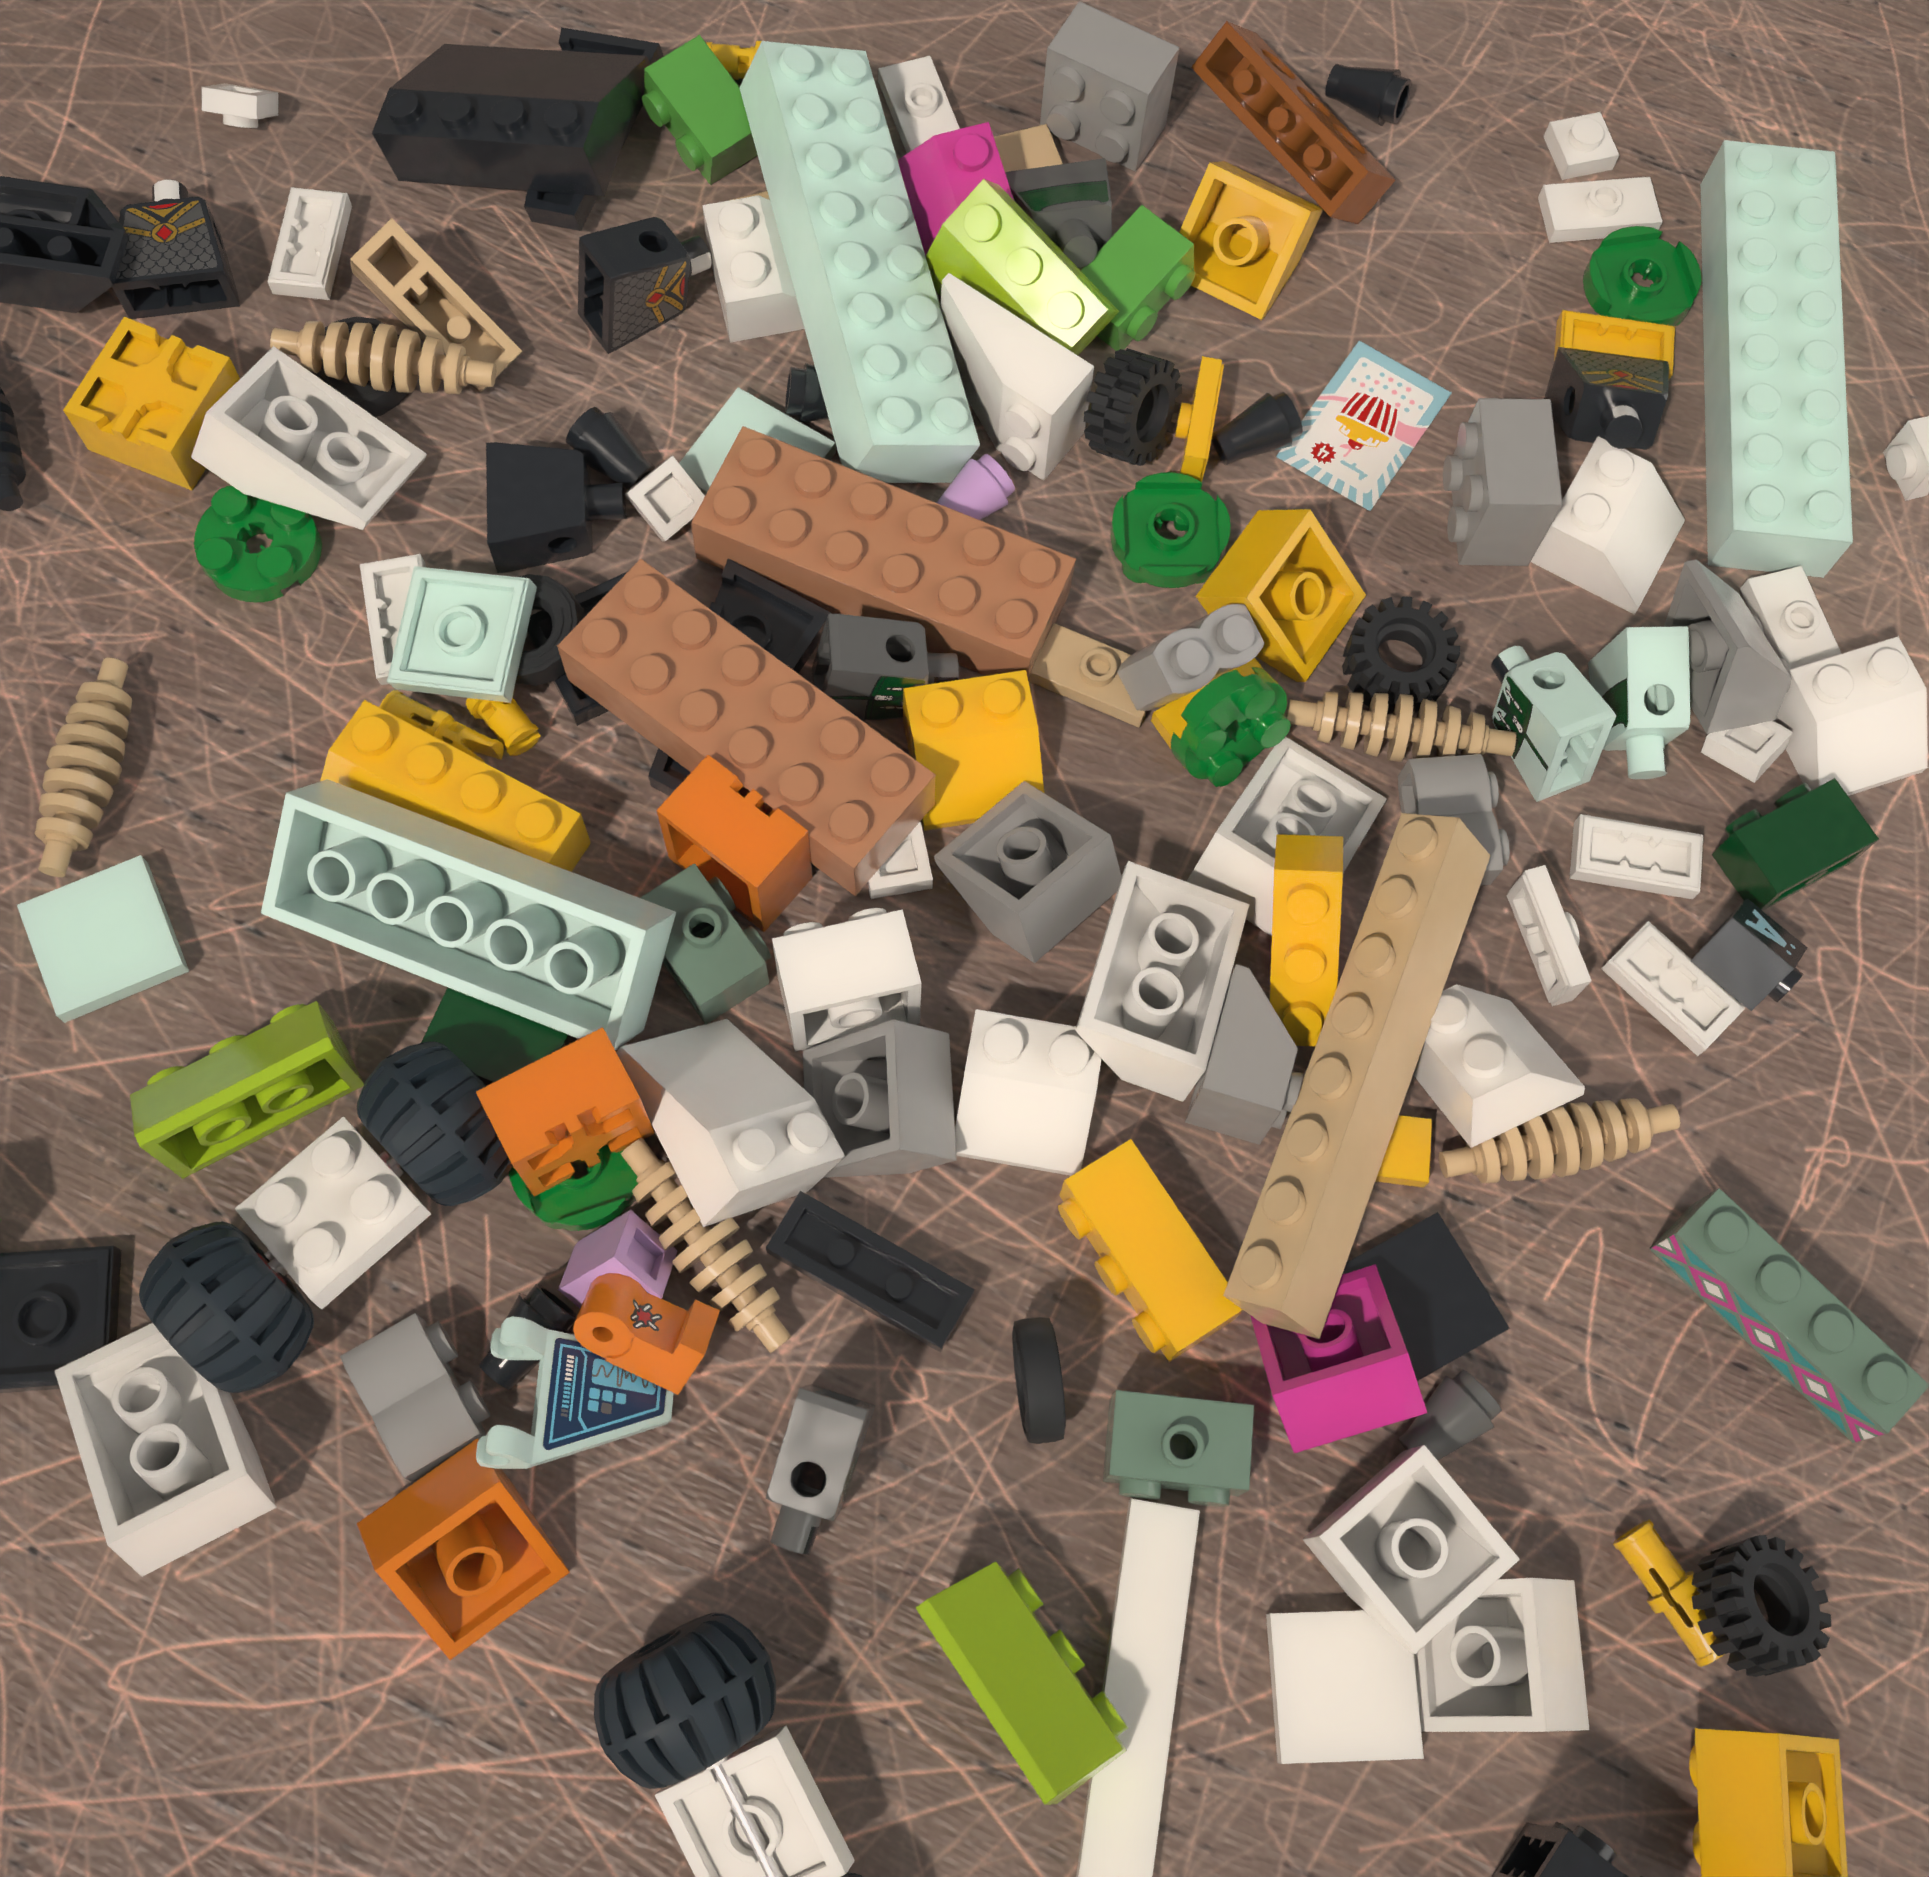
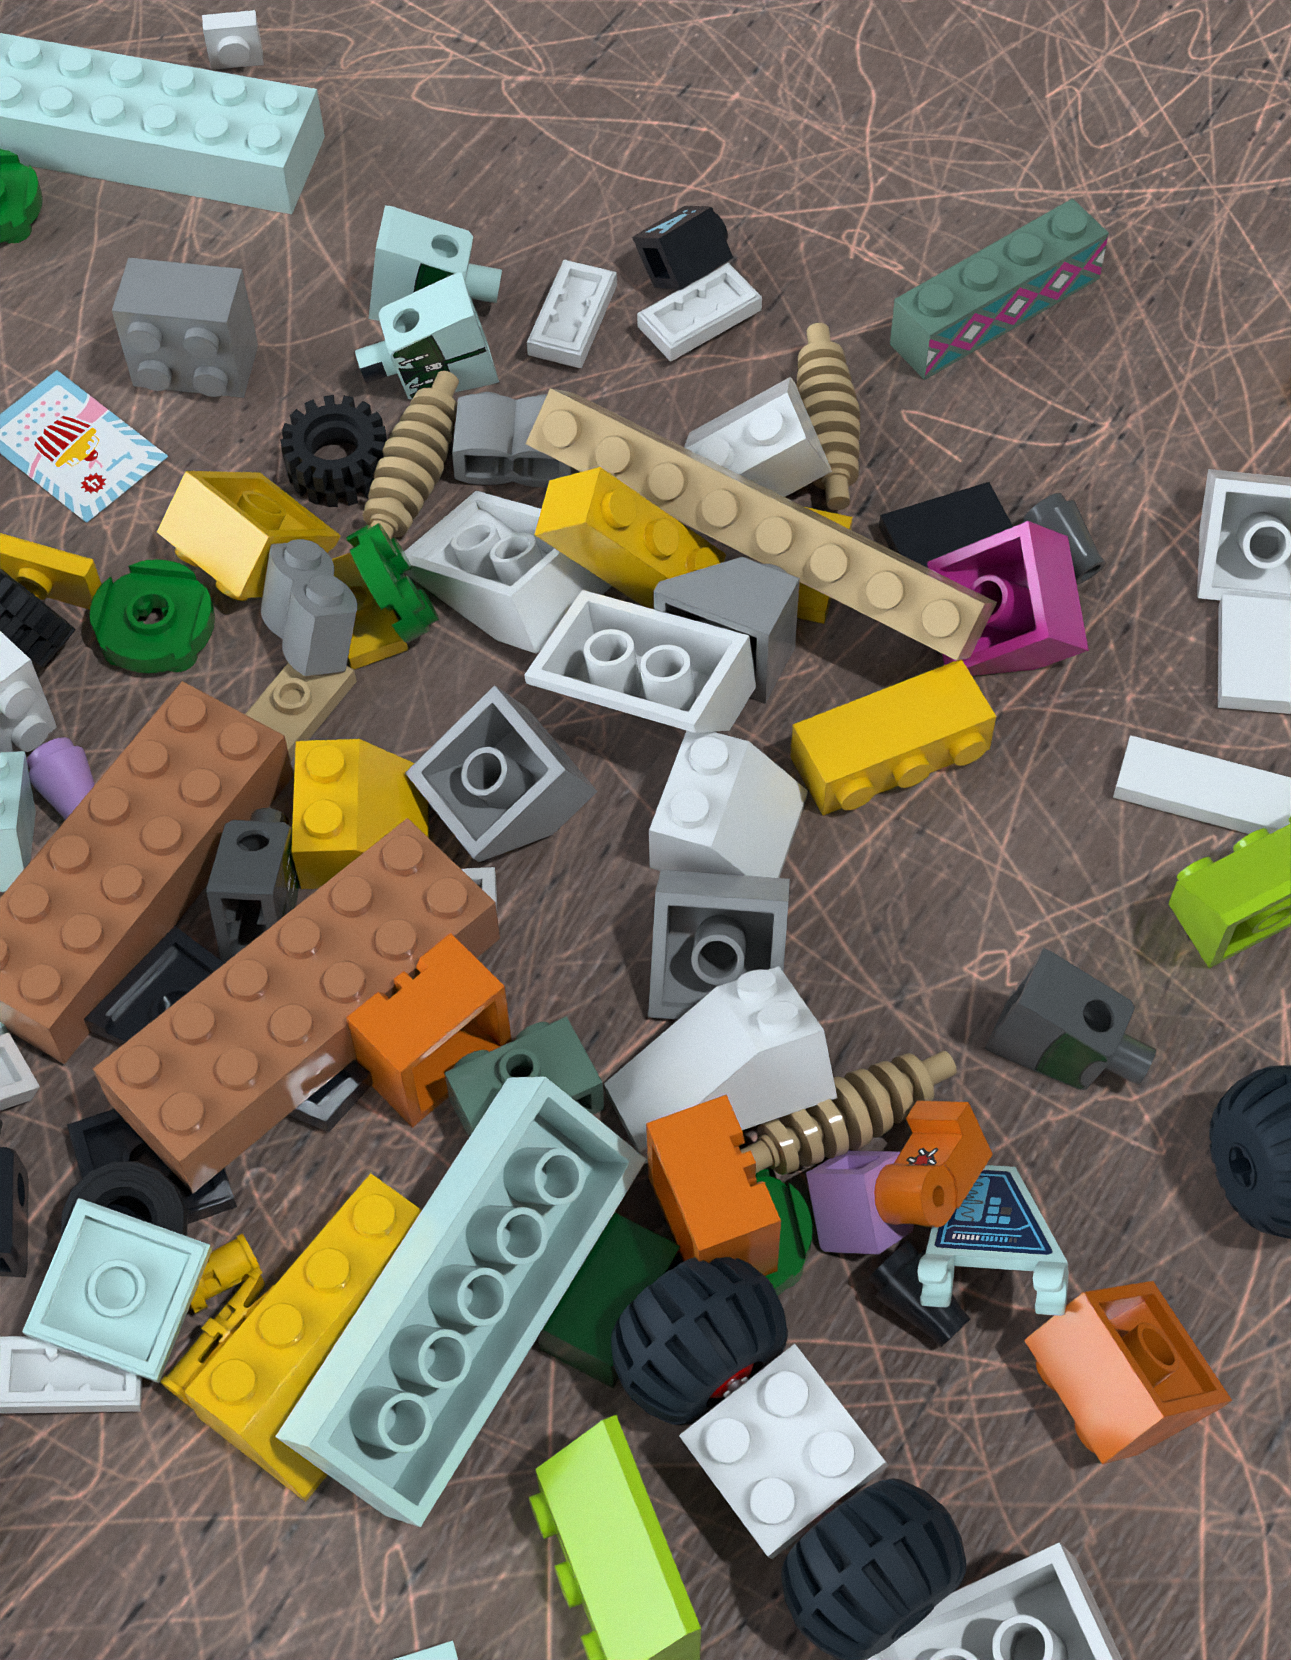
camera: 75 degrees left, 10 degrees down
(415, 1395) = (972, 1405): light grey brick -> none
(847, 976) = (594, 943): white brick -> none
(870, 1271) = (887, 973): black plate -> none
(1038, 1380) = (1036, 818): black tyre -> none
(1178, 1446) = (1073, 741): sand green brick -> none
(1259, 429) = (58, 515): black cone -> none
(1411, 1548) = (1175, 575): white slope -> none
(1549, 936) = (642, 385): white plate -> none
(1612, 527) = (272, 270): white slope -> none
(1613, 397) = (109, 227): black torso -> none
(1615, 336) = (52, 231): yellow plate -> none
(1669, 1587) = (1247, 401): yellow pin -> none
(1731, 662) = (419, 185): light grey slope -> none
(1733, 1615) = (1234, 349): black tyre -> none
(1748, 748) = (482, 212): white plate -> none
(1790, 616) = (372, 163): white plate -> none
(1794, 844) = (584, 200): dark green brick -> none
(1857, 718) = (475, 138): white slope -> none

